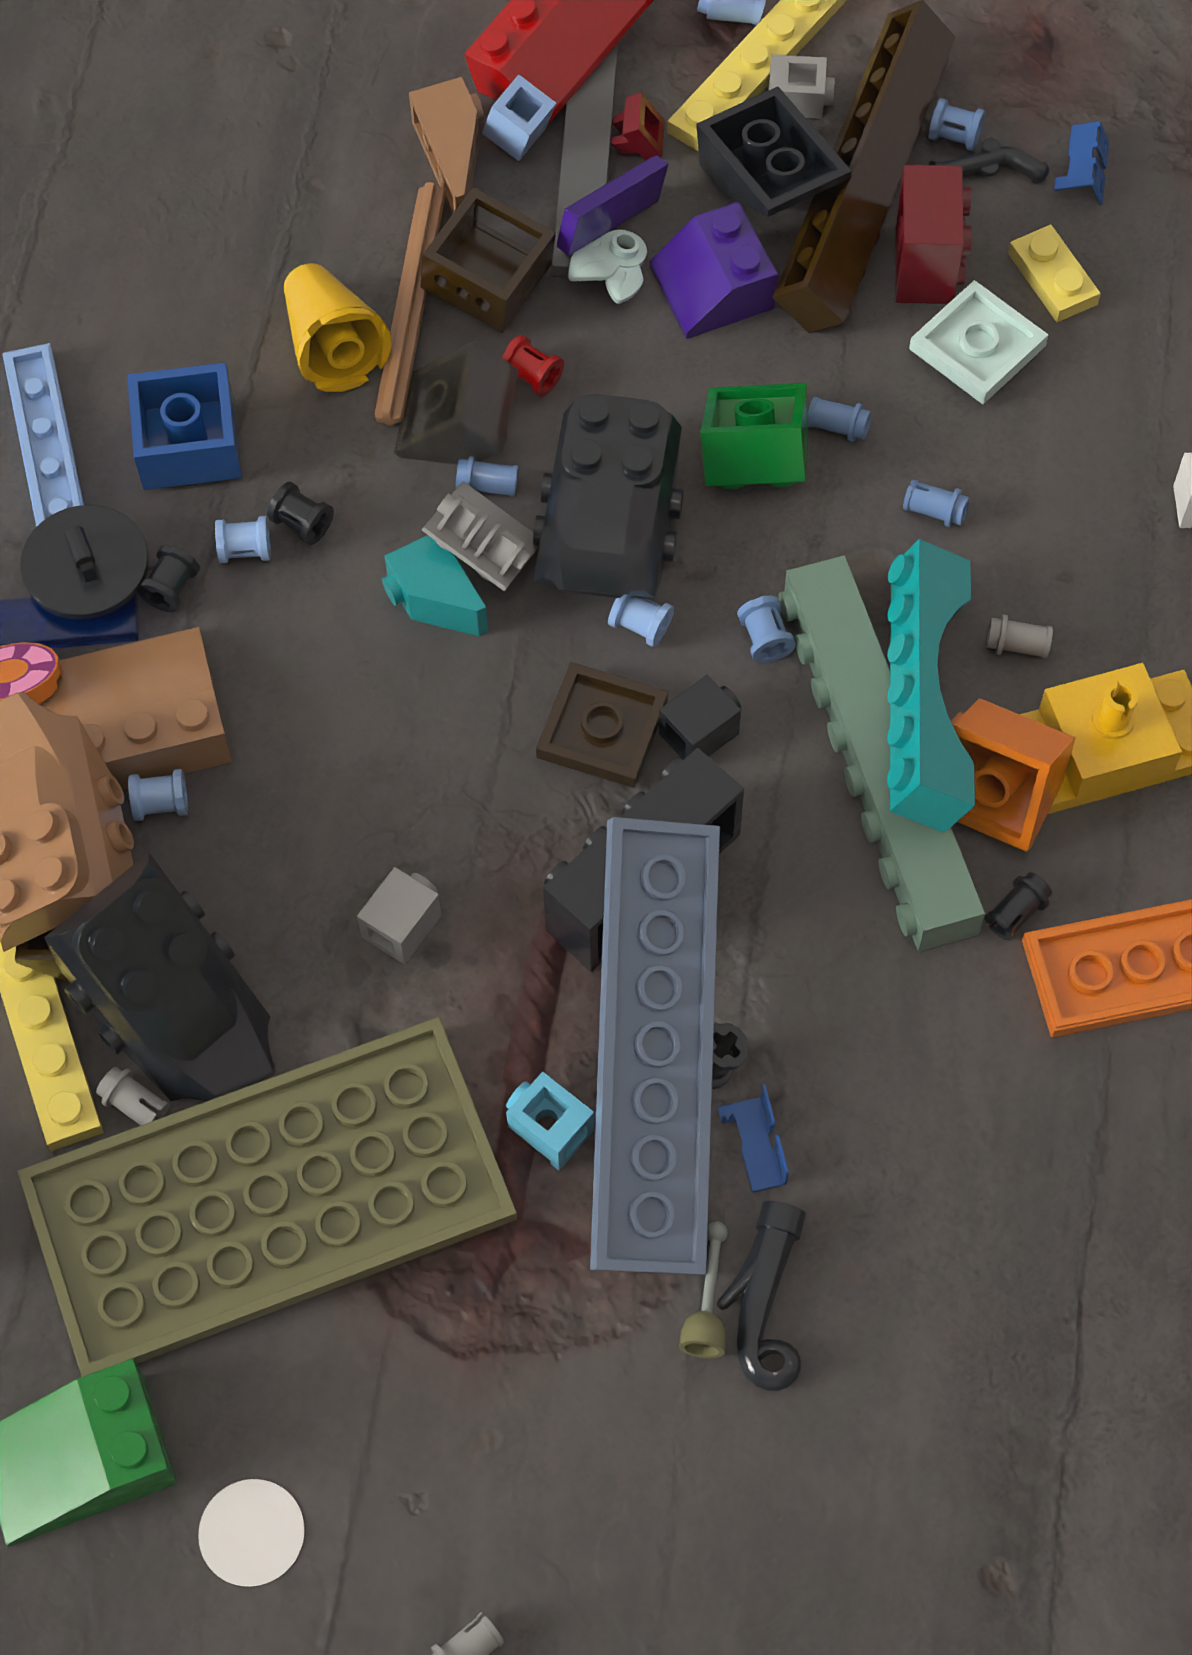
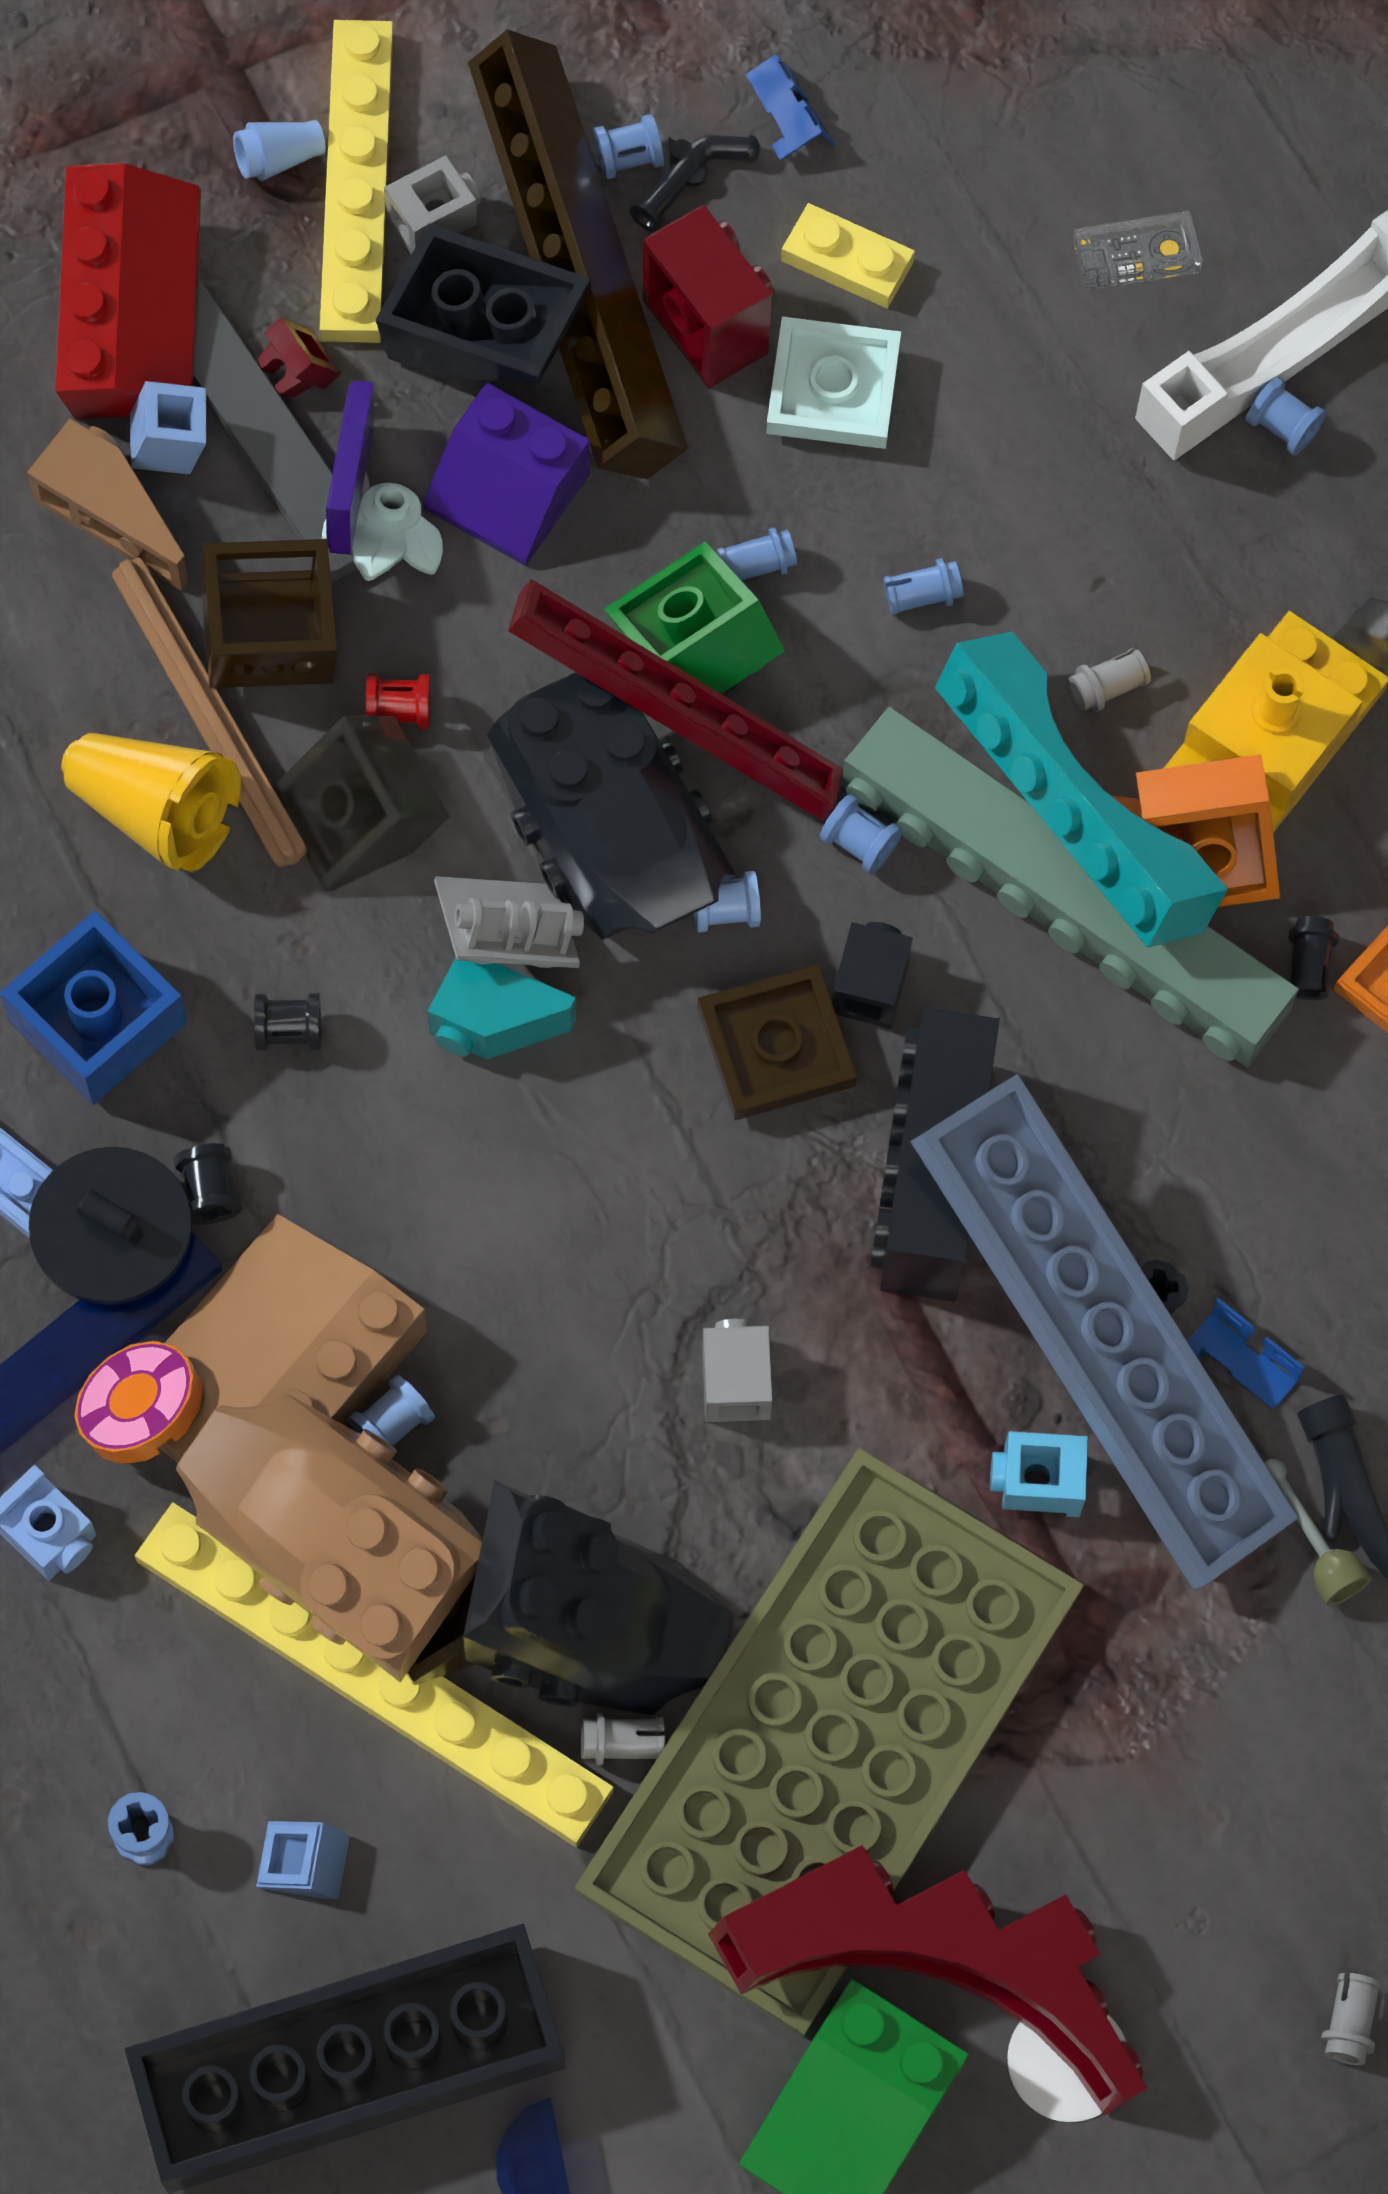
camera: 40 degrees left, 5 degrees up
(243, 539) = (252, 1090): light blue bush -> none
(265, 1439) = (947, 1933): none -> dark red arch
(488, 476) = (449, 854): medium blue pin -> none
(696, 458) = (676, 699): none -> dark red tile

